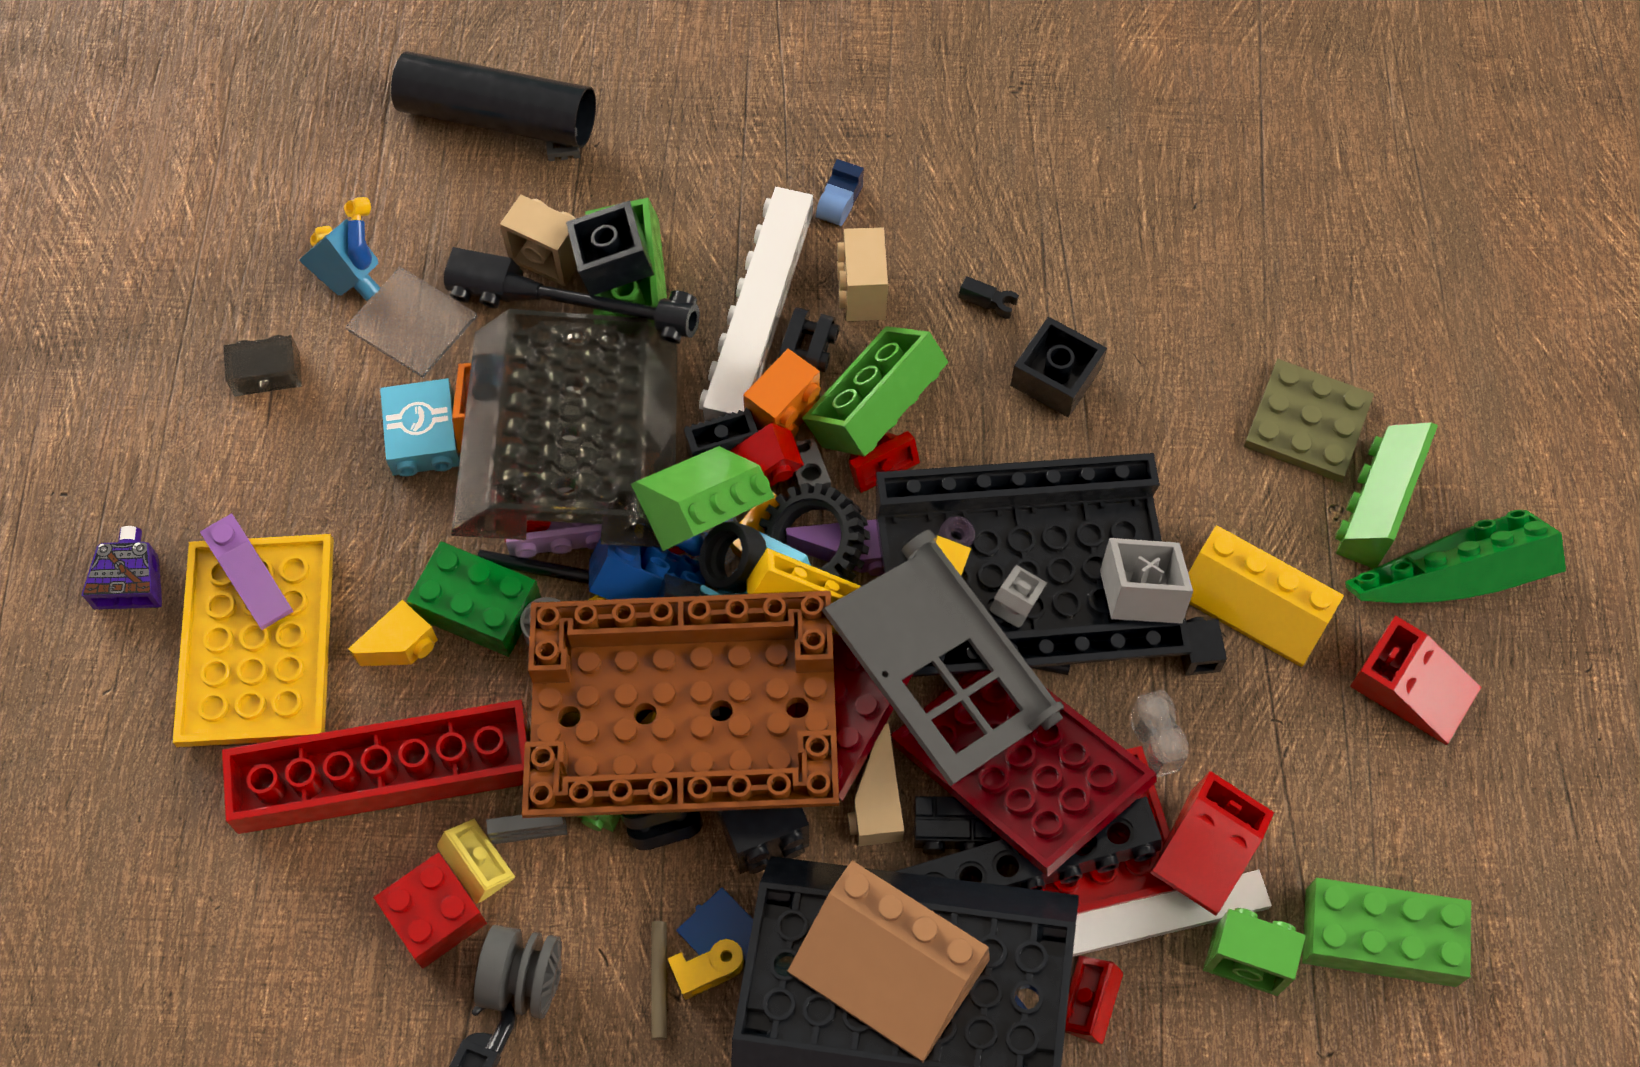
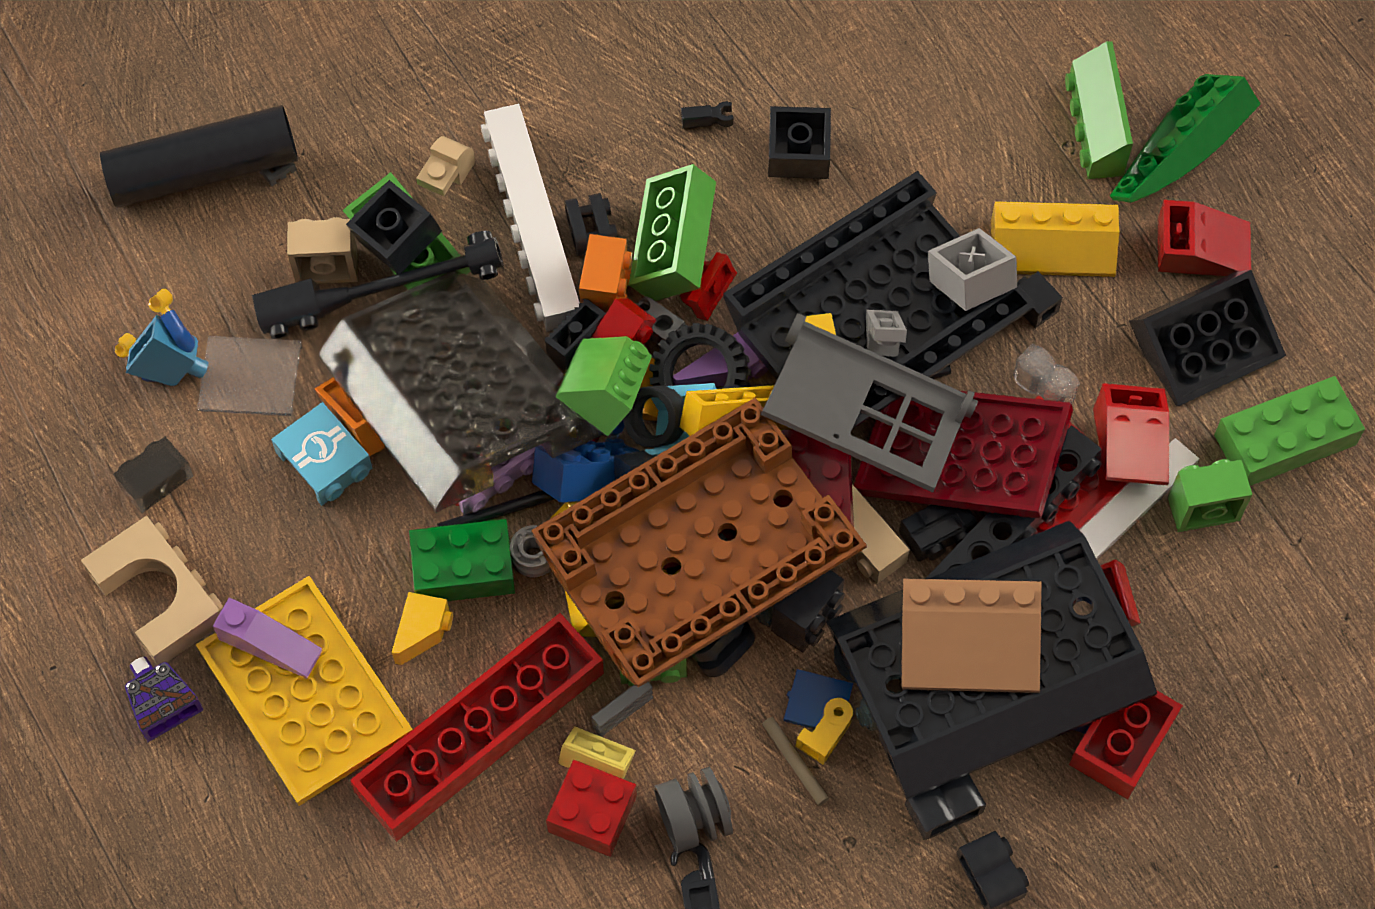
camera: 30 degrees left, 0 degrees up
(200, 427) = (143, 550): none -> tan arch
(710, 216) = (447, 164): none -> tan brick
(840, 192) = (535, 90): leg -> none
(863, 274) = (602, 146): tan brick -> none
(961, 525) = (809, 301): plate -> none
(1309, 420) = (1008, 87): olive plate -> none
(1361, 784) = (1209, 337): none -> black slope

